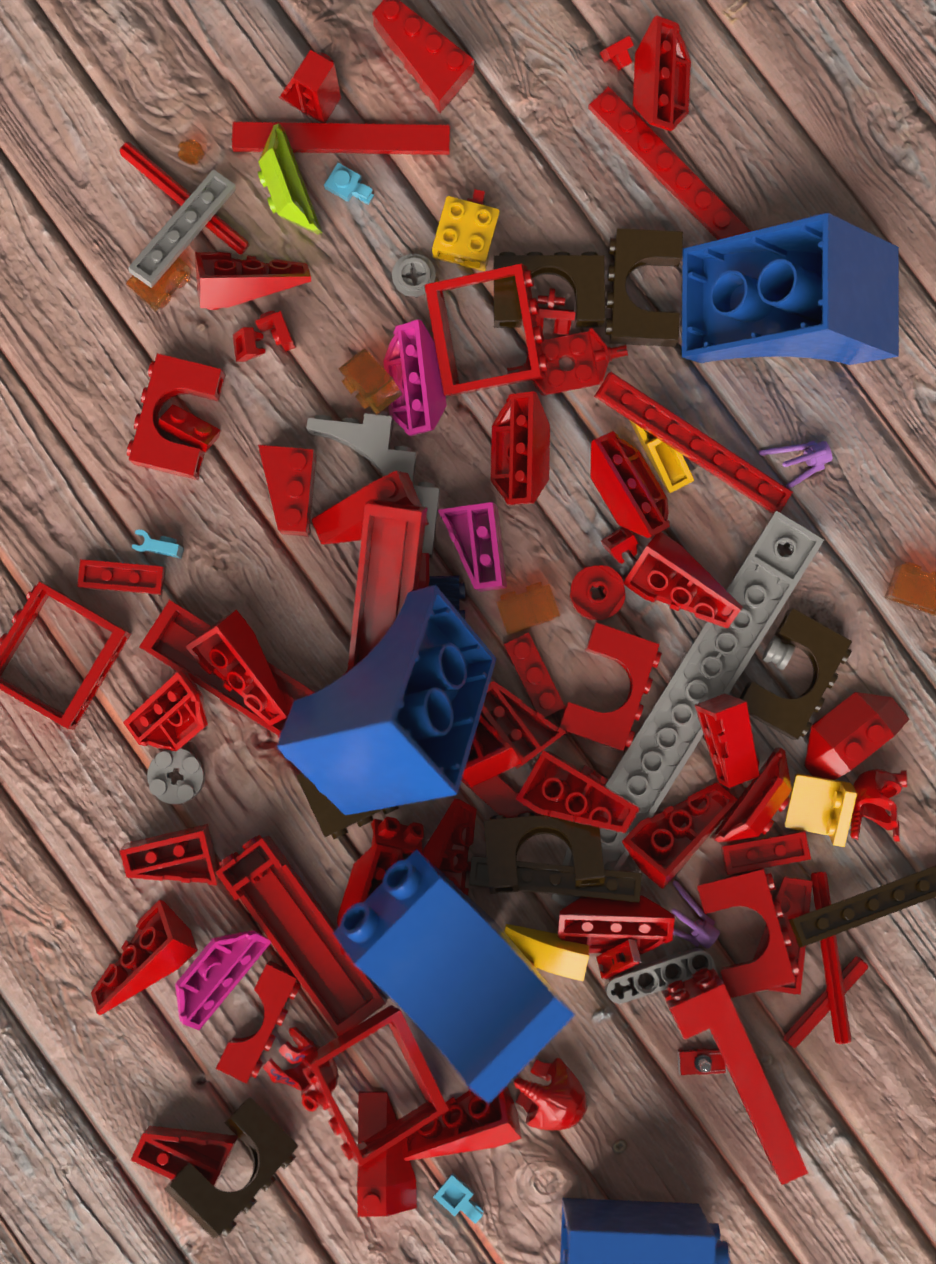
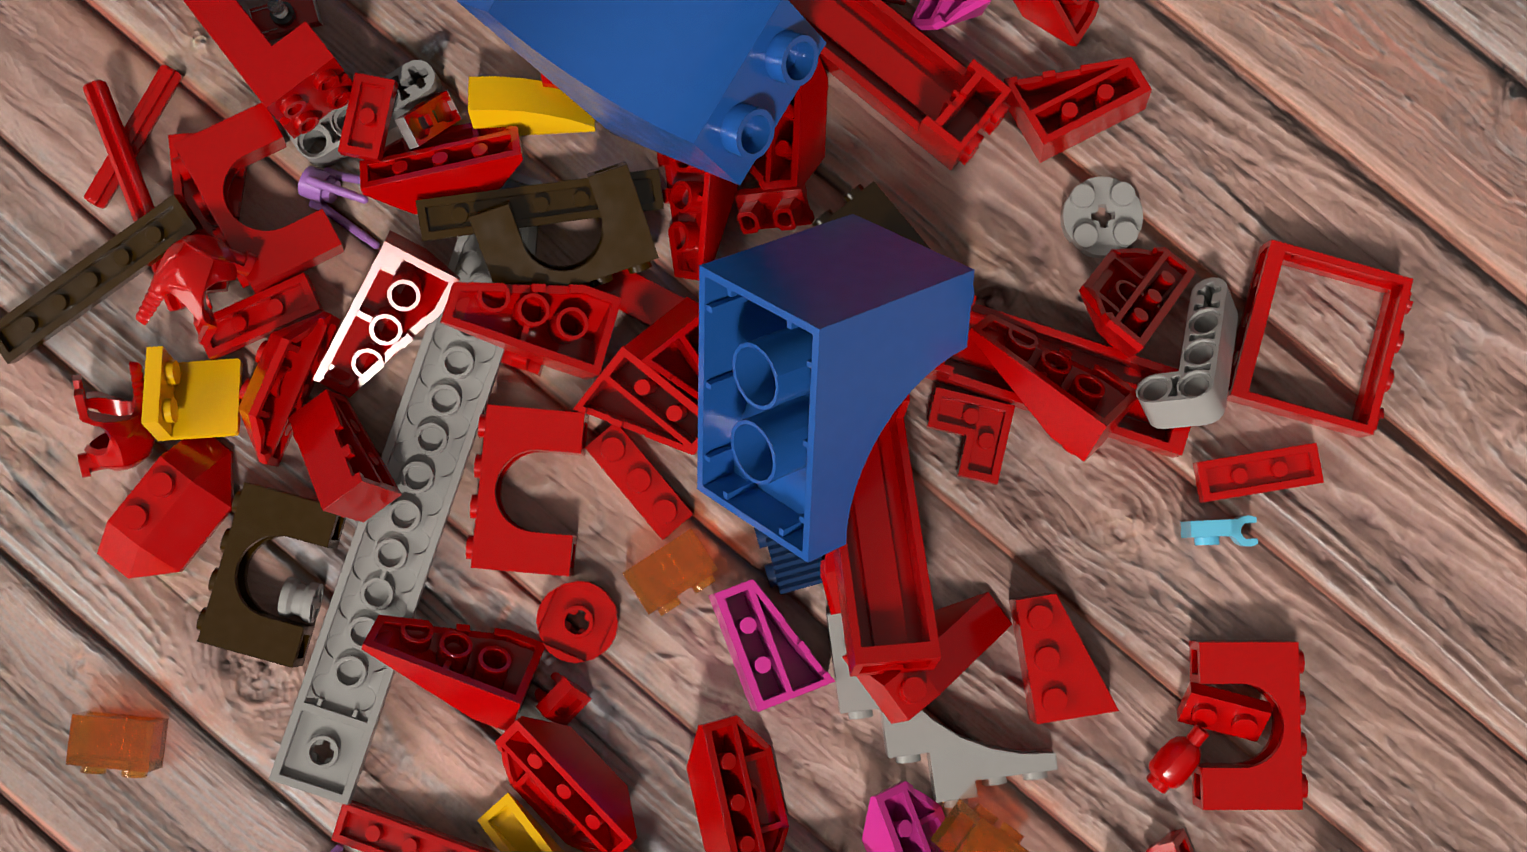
camera: 165 degrees right, 0 degrees up
(146, 638) = (1200, 387): none -> light grey beam
(228, 404) = (1176, 760): none -> red plant
(294, 652) = (982, 424): none -> red plate
(658, 968) = (368, 117): none -> red plate
(802, 886) = (187, 273): none -> red piece

